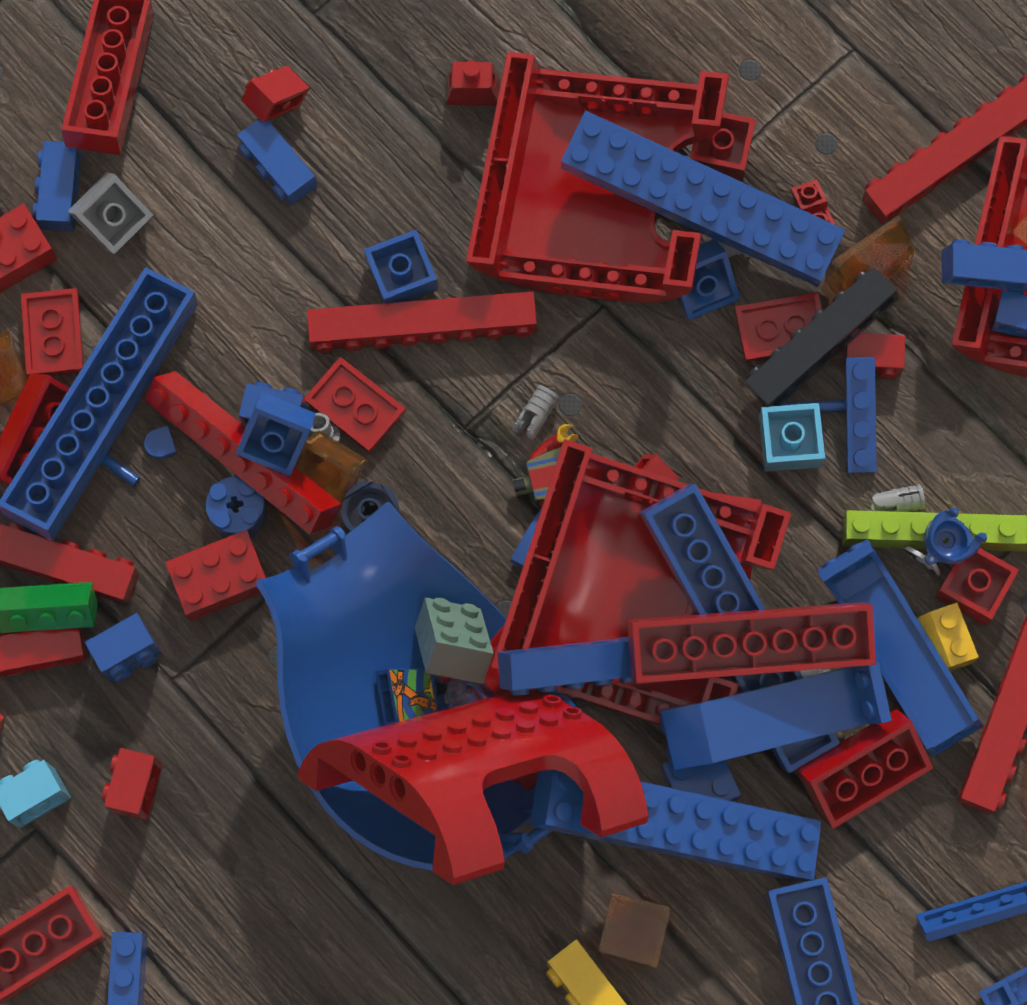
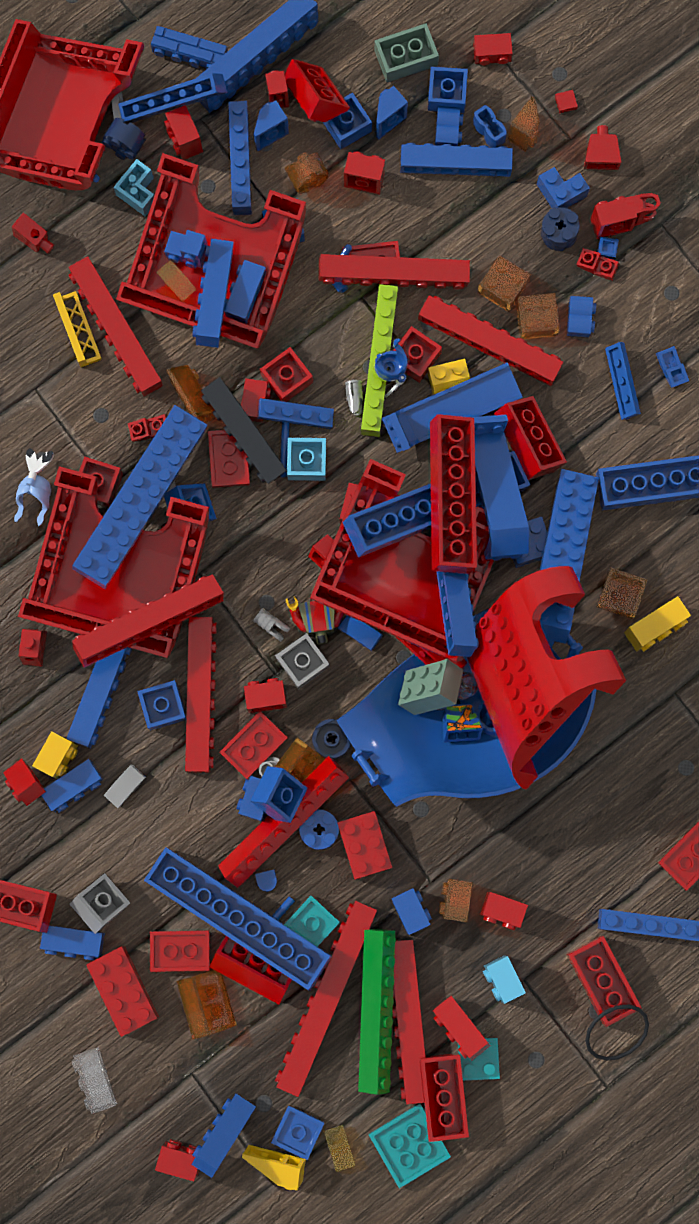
camera: 85 degrees left, 5 degrees up
(103, 512) = (312, 921): none -> teal plate
(143, 713) = (456, 900): none -> clear orange brick
(282, 233) = (124, 786): none -> light grey slope
(315, 131) = (55, 756): none -> yellow brick
(406, 180) = (97, 698): none -> blue brick
(424, 408) = (265, 695): none -> red brick
(483, 460) = (302, 661): none -> light grey brick
(516, 225) = (147, 620): none -> red brick
(708, 58) = (35, 484): none -> light blue hair
(917, 395) = (286, 375): none -> red brick
(948, 84) = (73, 336): none -> yellow fence

